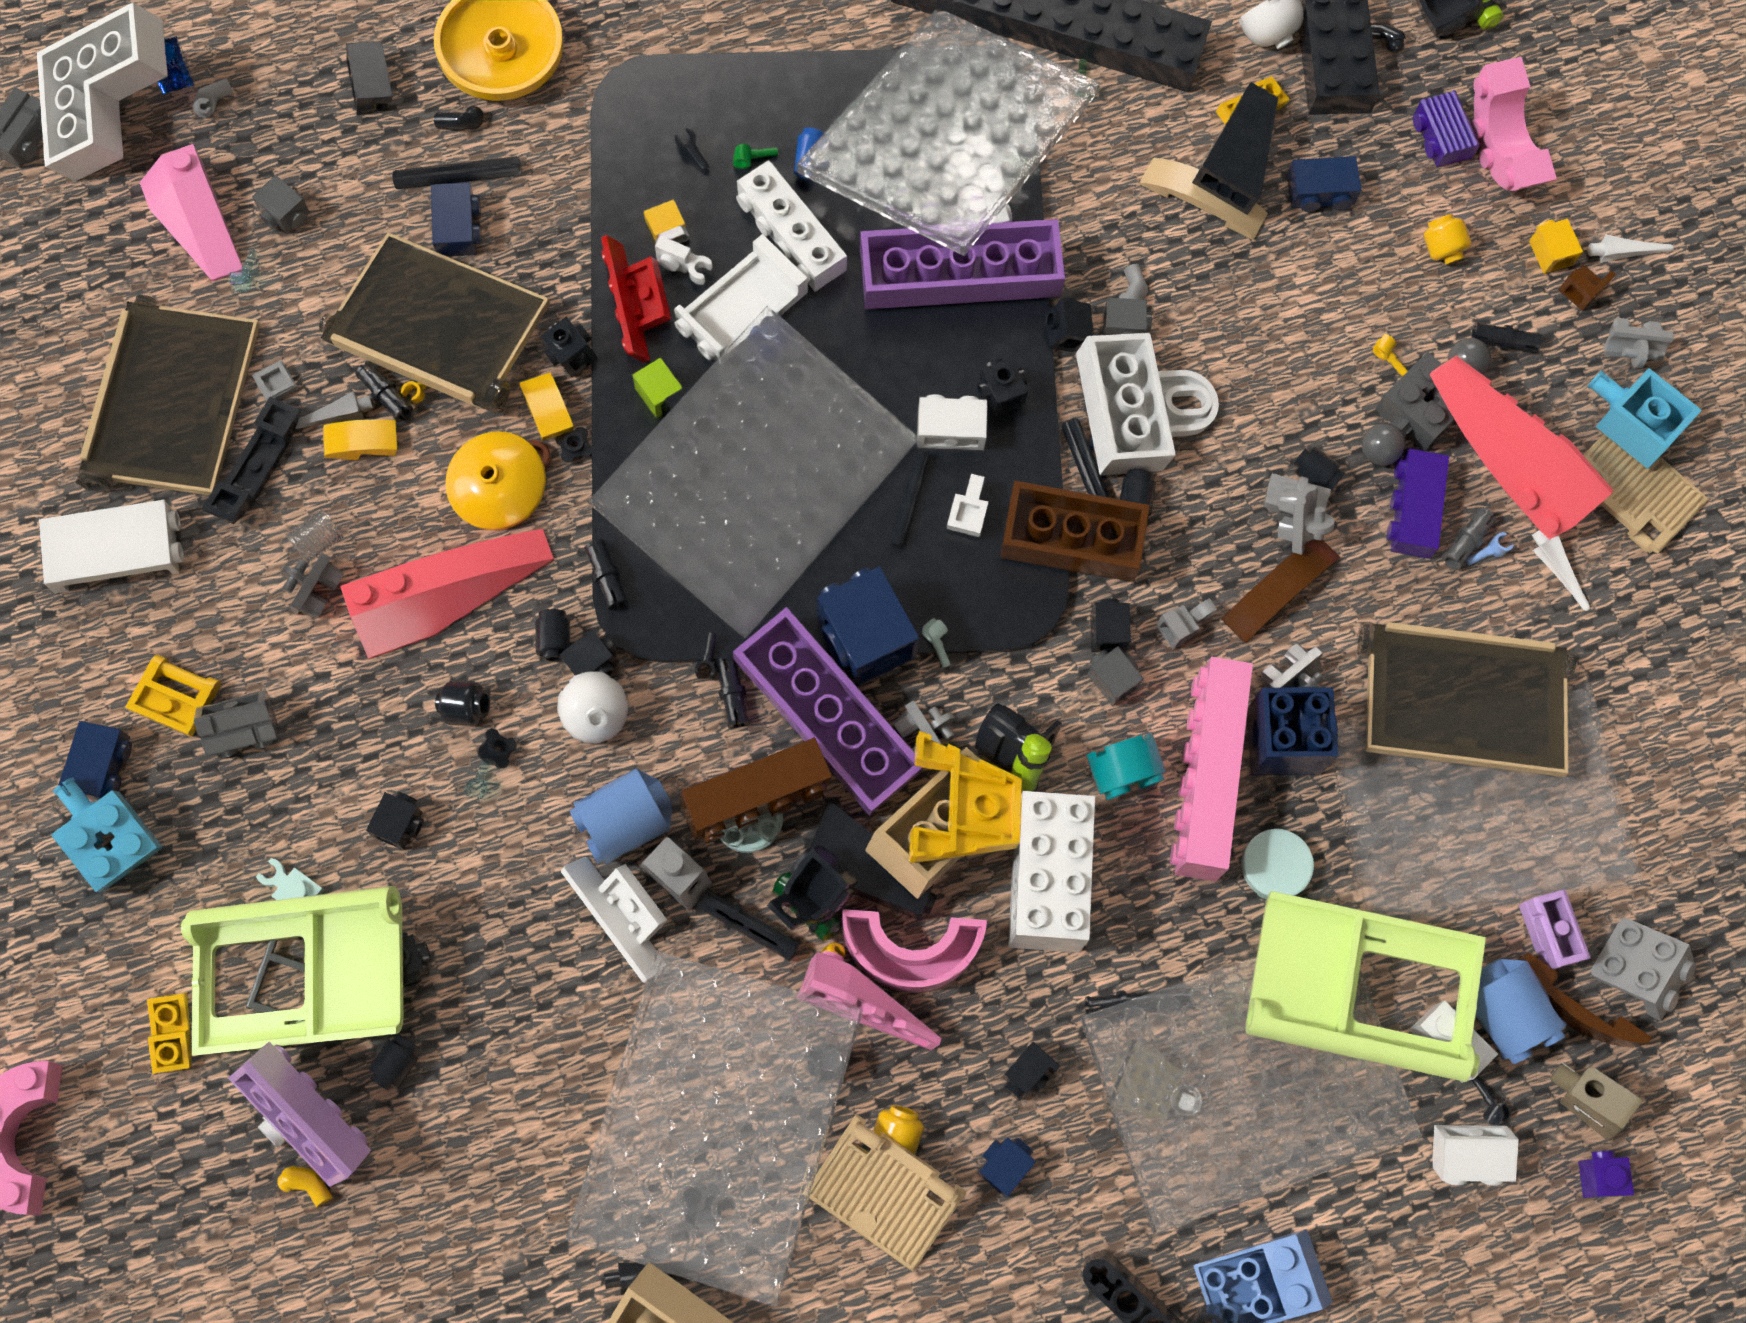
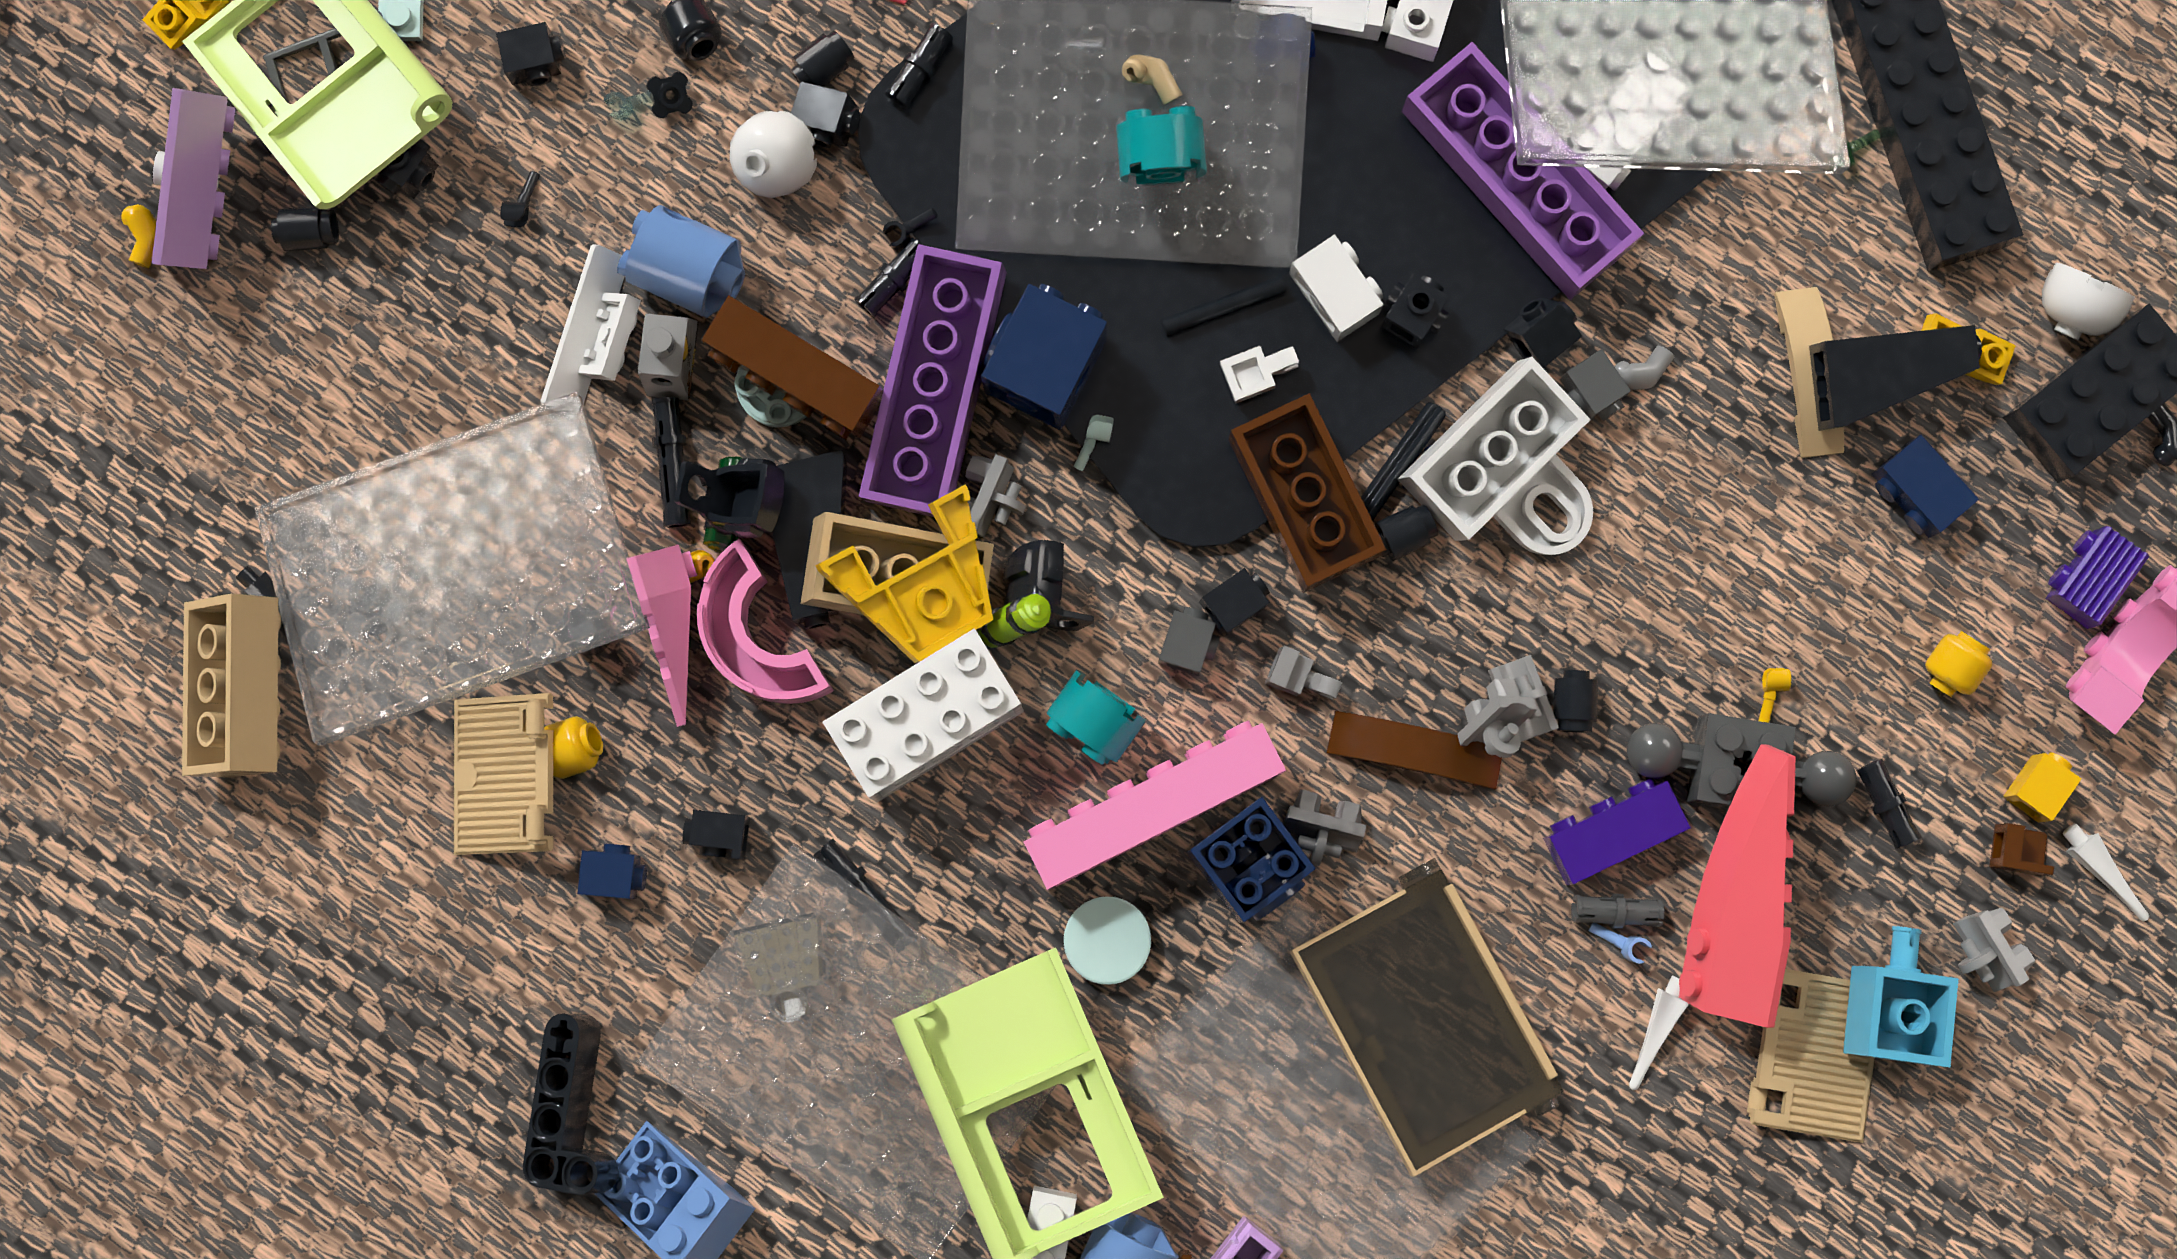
camera: 60 degrees right, 10 degrees up
(495, 909) = (516, 213): none -> black hand
(735, 426) = (1152, 72): none -> tan arm
(789, 454) = (1161, 146): none -> teal brick

